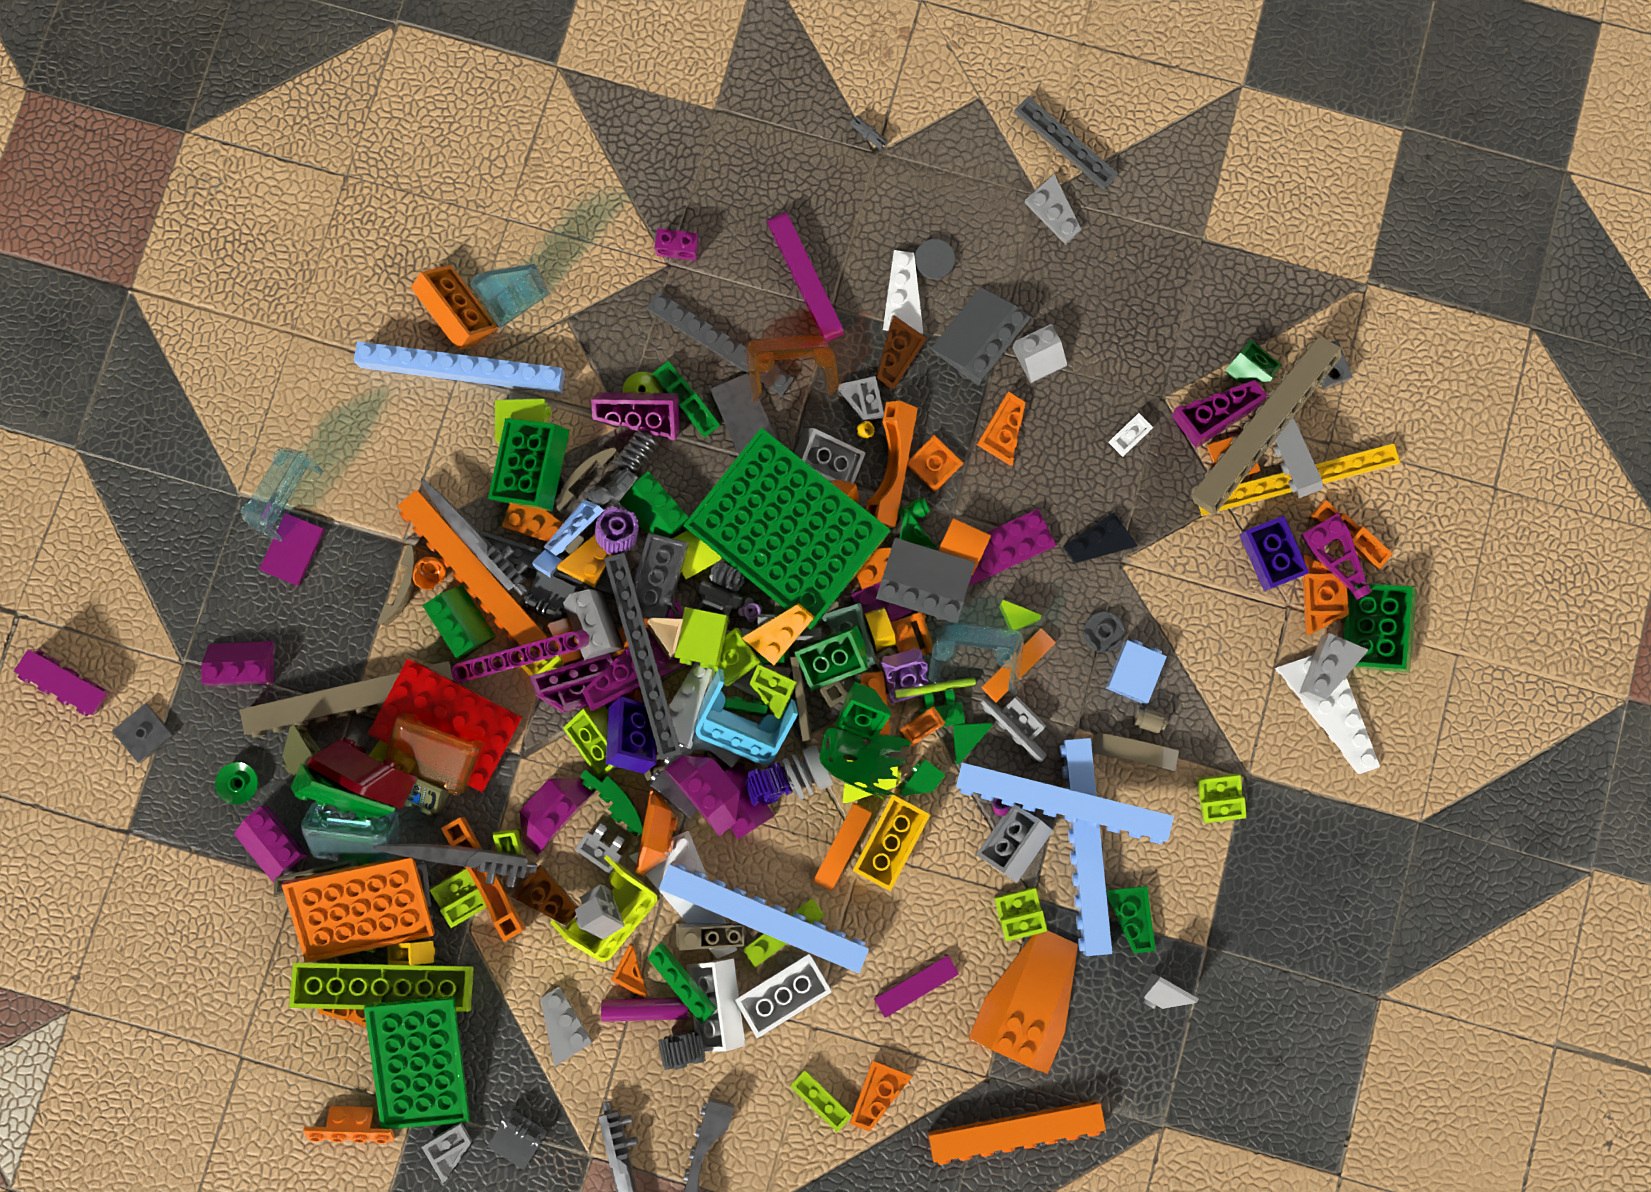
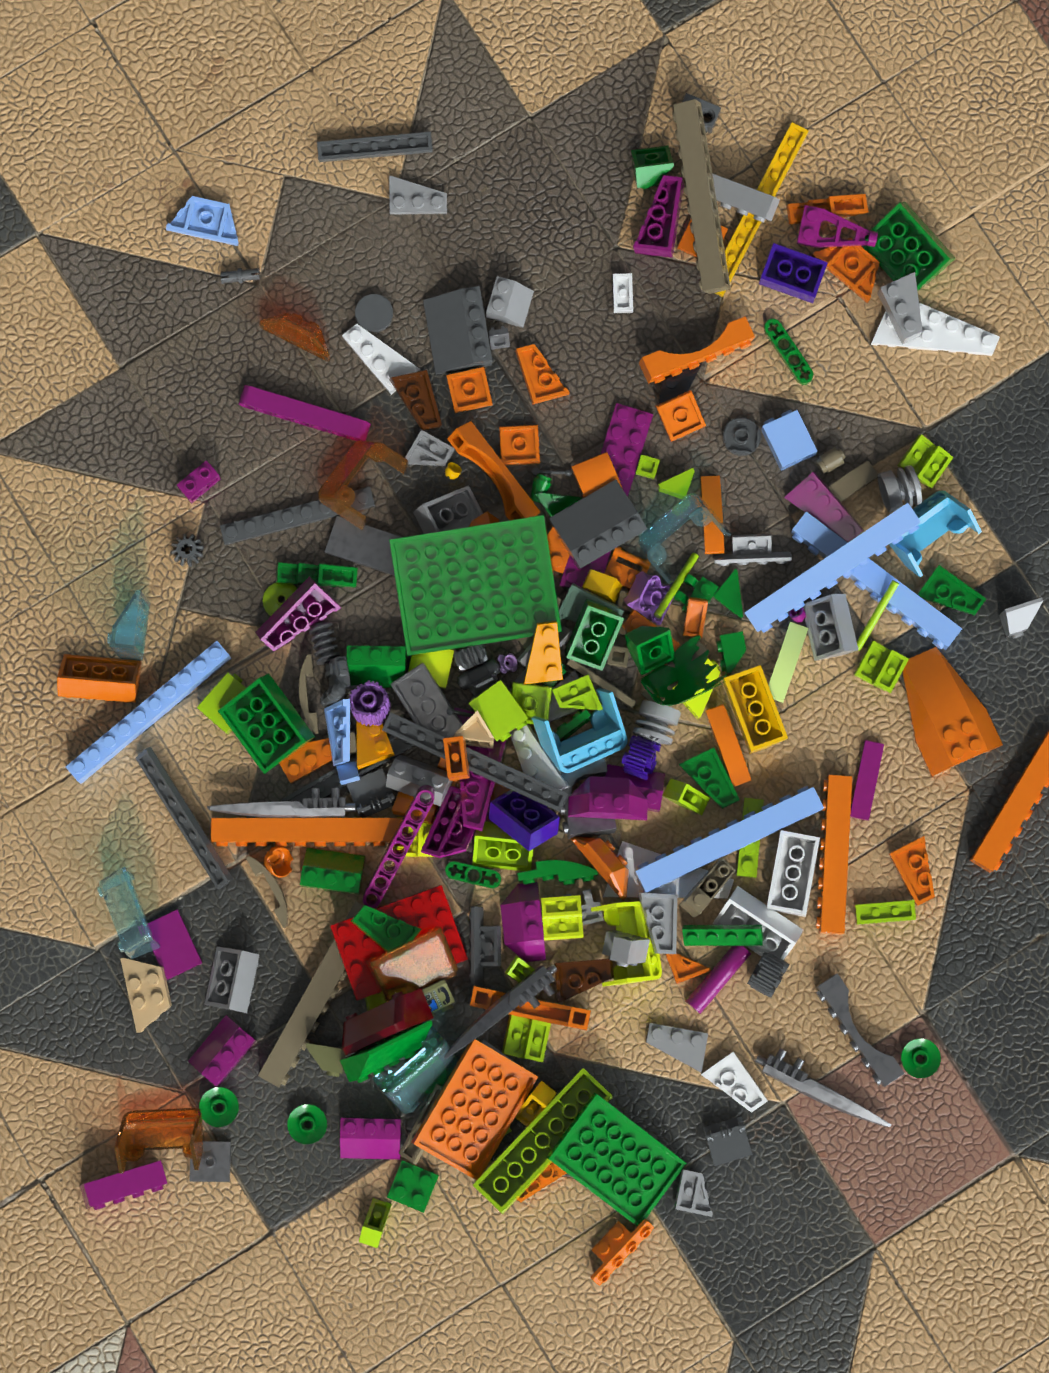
camera: 45 degrees left, 0 degrees up
(130, 668) = (159, 1130): none -> clear orange windscreen
(181, 701) = (211, 1114): none -> green dish
(202, 909) = (375, 1223): none -> lime slope
(236, 562) = (146, 991): none -> tan wing
(259, 913) = (412, 1186): none -> green plate
(302, 621) = (231, 979): none -> light grey slope
(399, 471) = (184, 818): none -> dark grey plate
(441, 704) = (383, 929): none -> green wing
(504, 795) = (484, 946): none -> dark grey bracket
(553, 719) = (470, 867): none -> green beam
(573, 1097) = (736, 1081): none -> white wing
(580, 838) = (562, 917): none -> neon yellow slope
(614, 276) = (181, 555): none -> dark grey gear
(628, 637) = (456, 758): none -> orange brick
(649, 921) = (661, 920): none -> light grey wing
(770, 850) = (686, 796): none -> lime slope
(805, 855) = (712, 777): none -> green wing
(831, 1016) = (835, 854): none -> orange brick
(864, 215) = (297, 332): none -> clear orange wedge
(888, 69) = (205, 220): none -> light blue wing
(941, 385) = (469, 390): none -> orange plate
(947, 521) = (567, 472): none -> dark grey hinge
(954, 832) = (787, 661): none -> yellowish green slope
(1004, 371) = (499, 338): none -> flat silver tile
(1009, 579) = (647, 467): none -> lime plate
(1068, 870) = (877, 613): none -> lime bar
(1075, 568) = (680, 415): none -> orange tile
(1101, 514) = (662, 364): none -> orange arch
(1108, 744) = (821, 503): none -> magenta wing
(1183, 799) = (904, 487): none -> light grey wheel
(1186, 848) = (937, 516): none -> medium azure windscreen
(1210, 608) = (790, 350): none -> green beam

